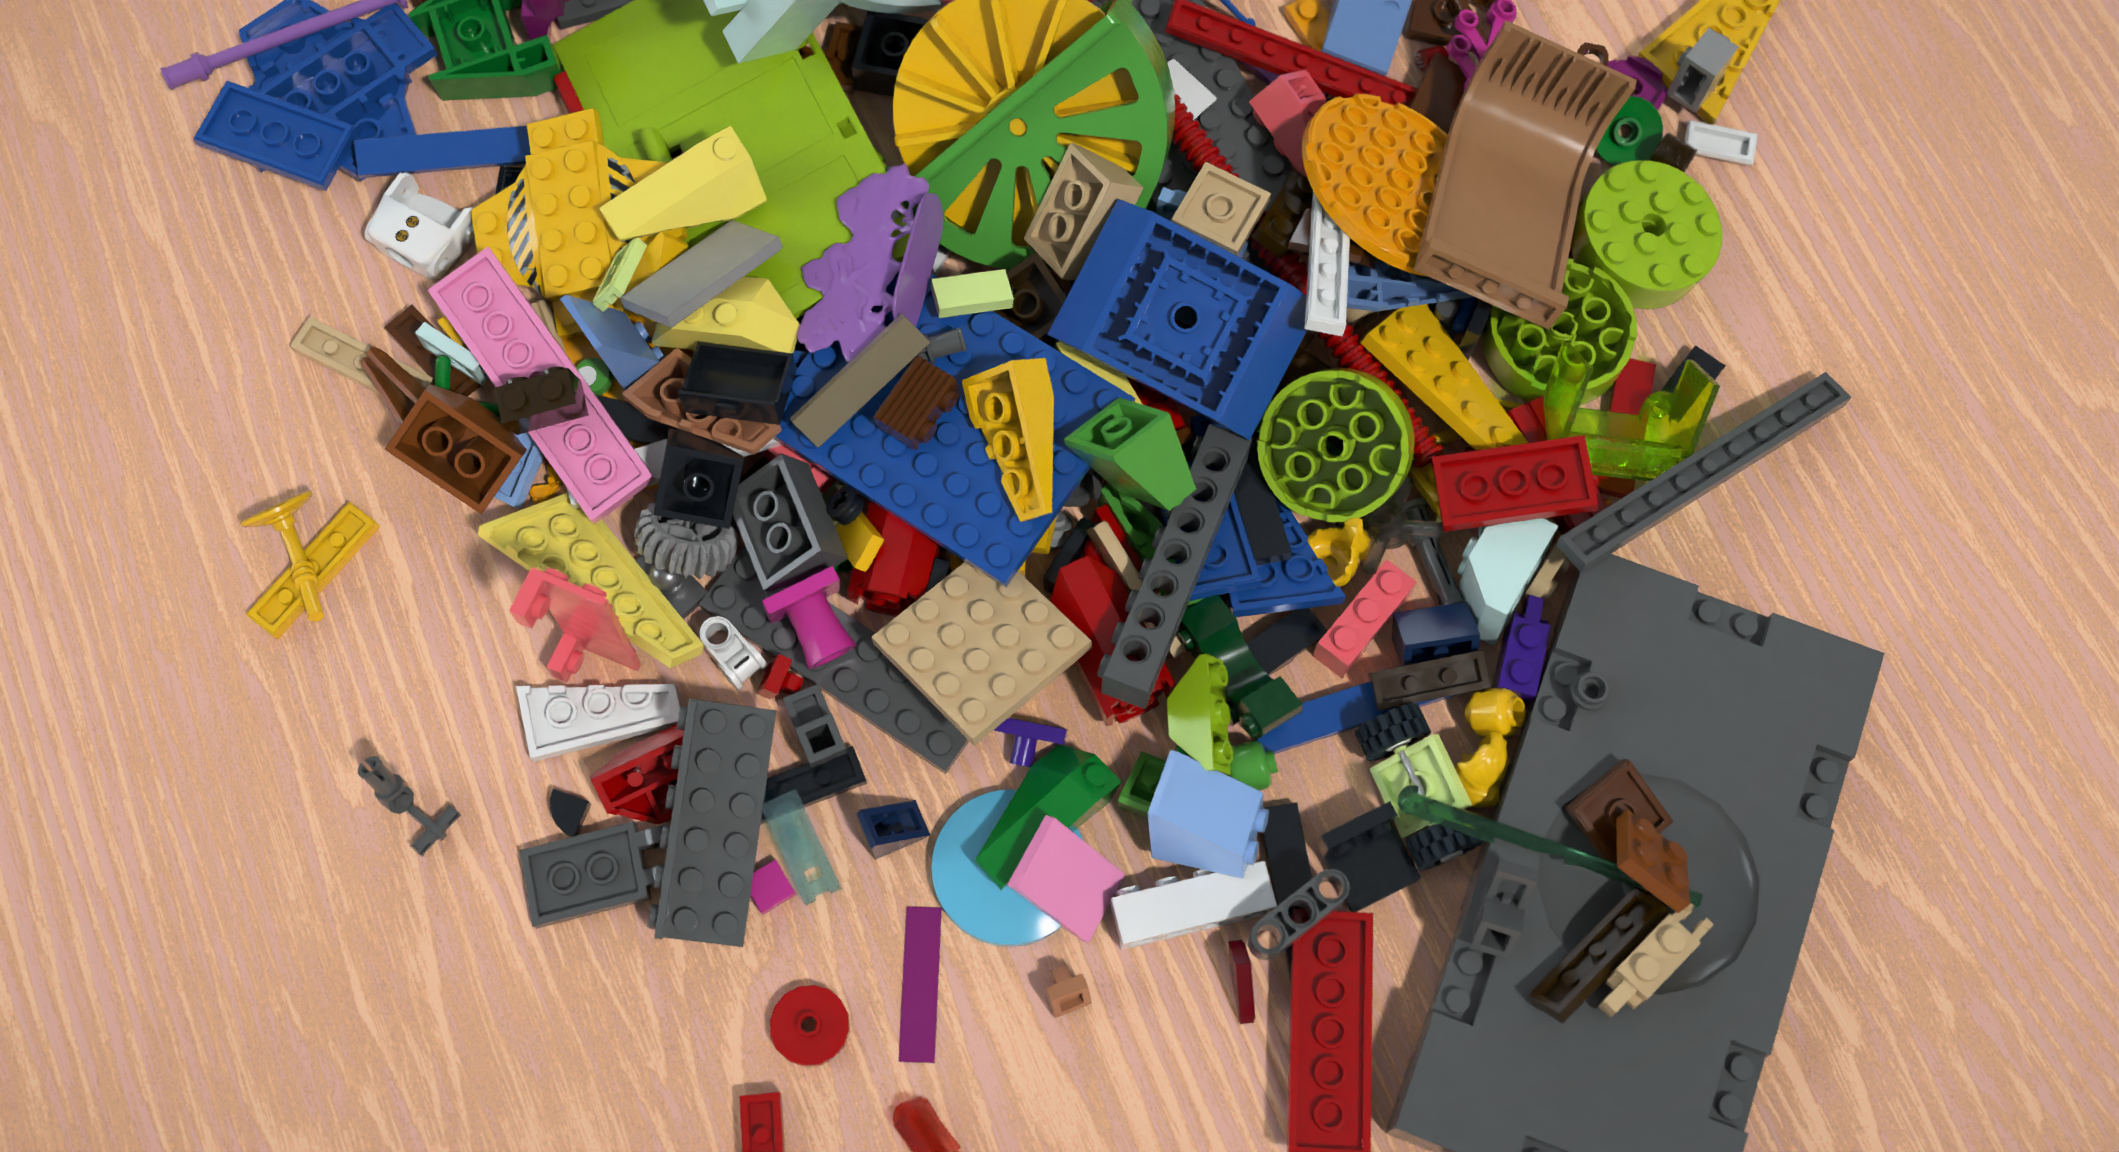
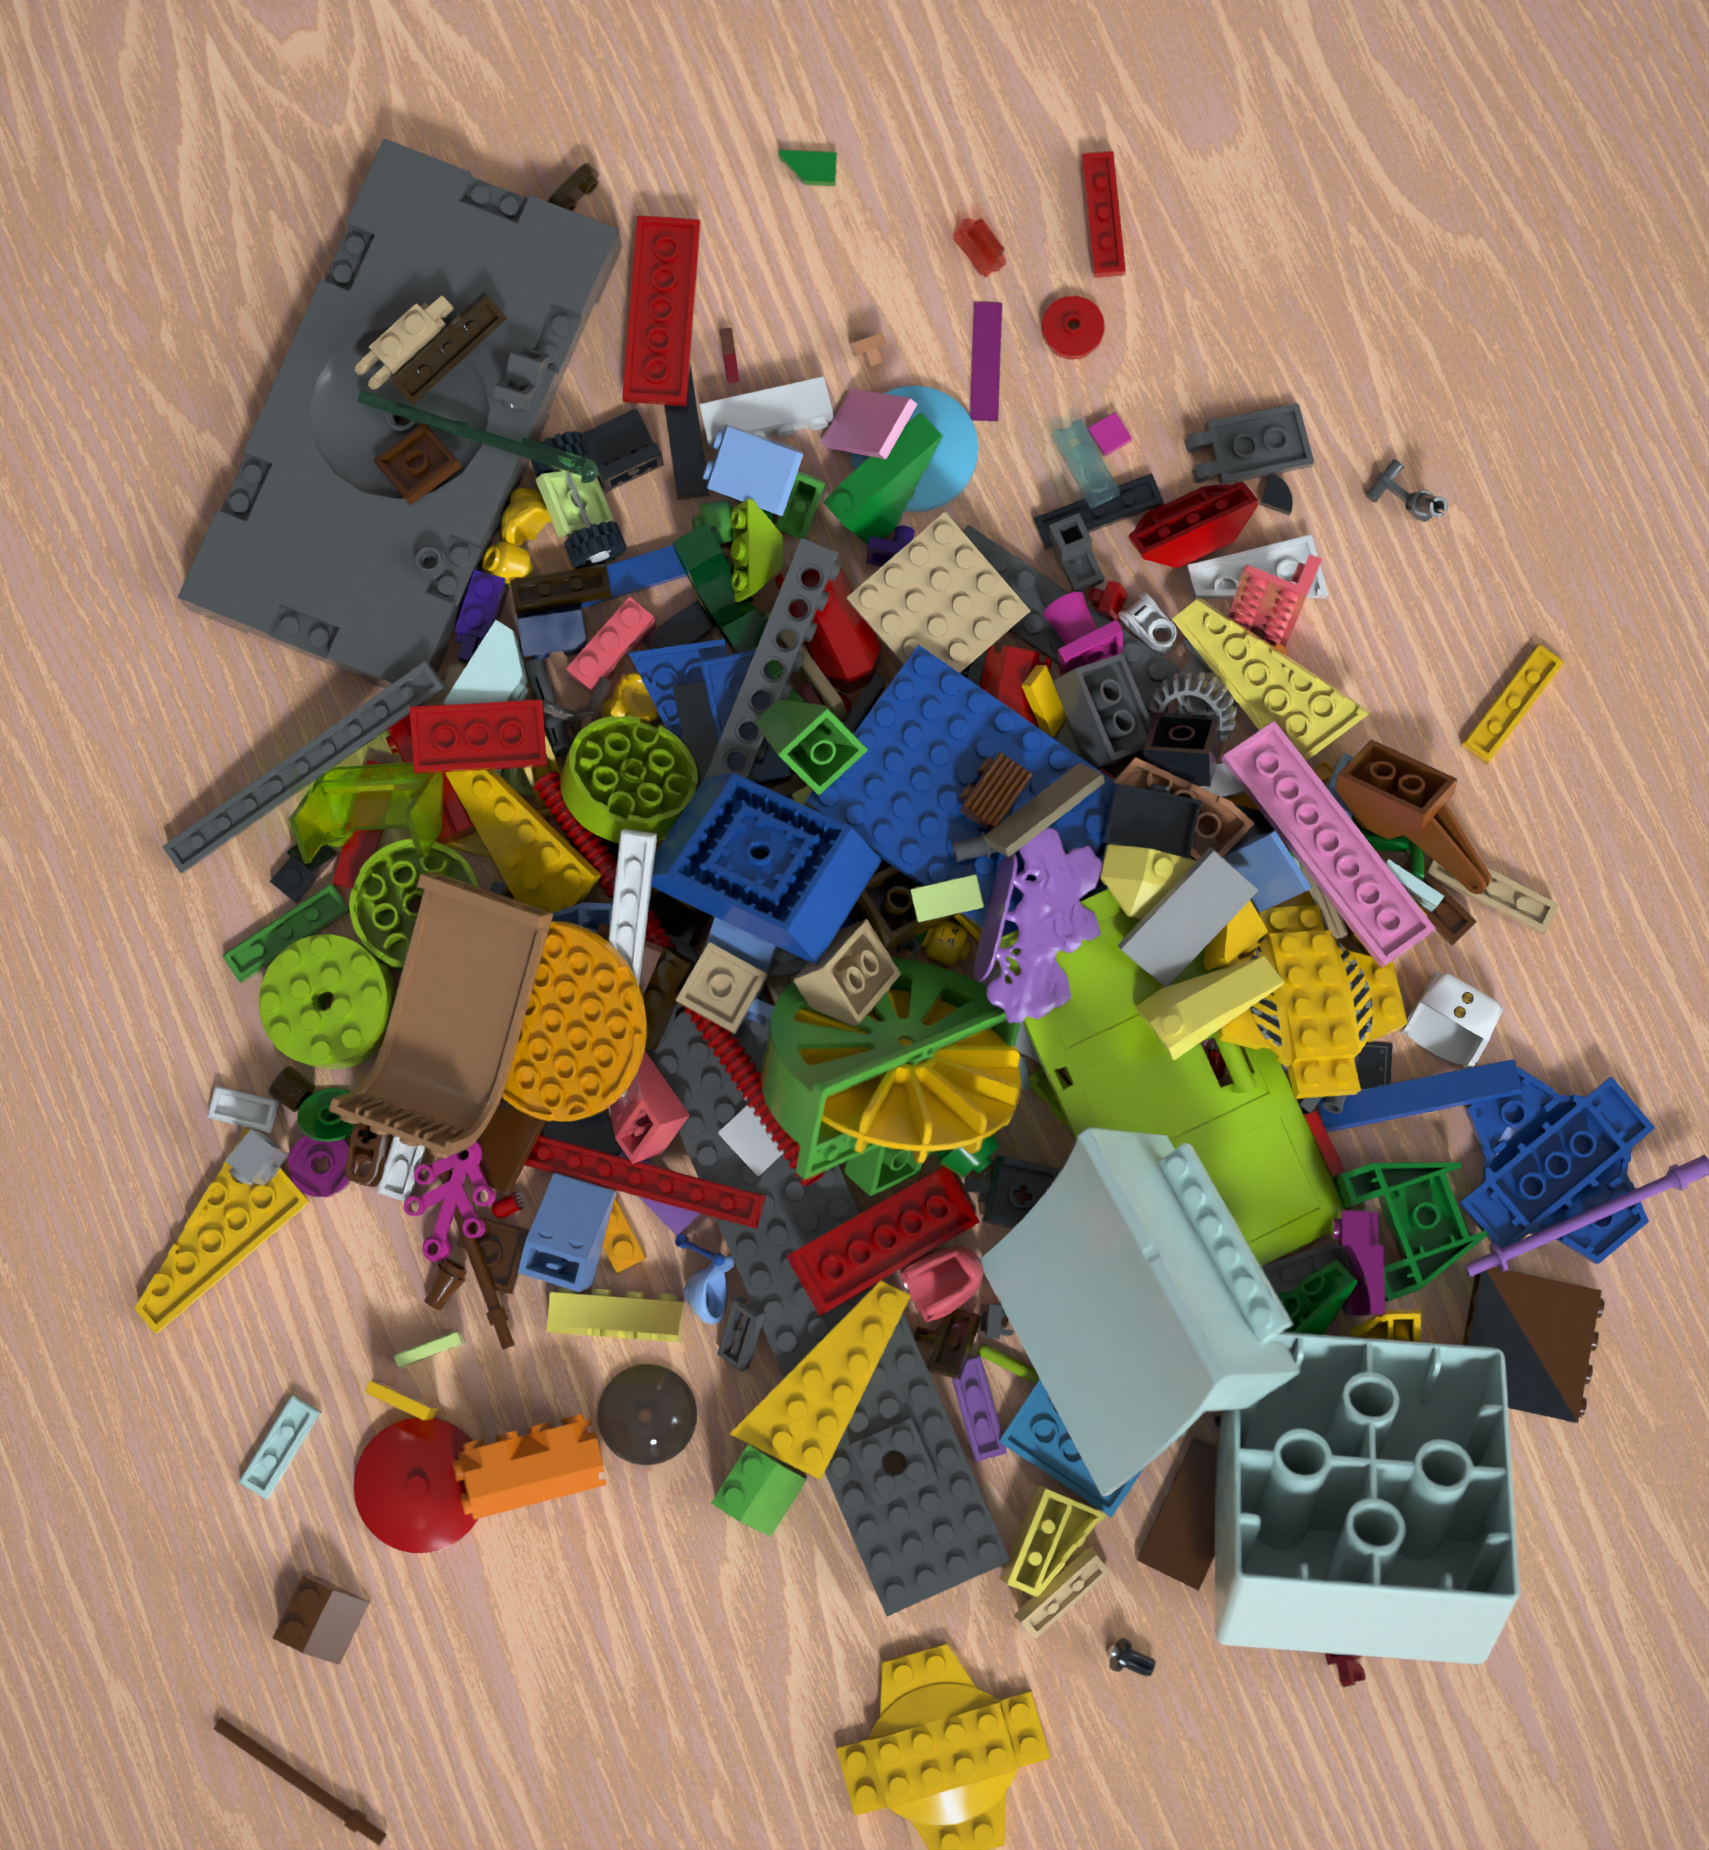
camera: 175 degrees left, 10 degrees up
(276, 135) = (1596, 1104): blue tile -> none
(302, 570) = (1541, 736): yellow dish -> none
(541, 400) = (1323, 812): dark brown brick -> none
(619, 274) = (1262, 925): yellowish green tile -> none
(713, 823) = (1155, 472): dark grey bracket -> none
(845, 505) = (1064, 726): black bush -> none
(892, 827) = (1011, 477): dark blue slope -> none
(1017, 418) = (905, 774): yellow wedge -> none
(1306, 897) = (688, 375): dark grey beam -> none
(1653, 860) = (397, 415): dark orange plate -> none
(1699, 317) = (300, 922): none -> bright green tile

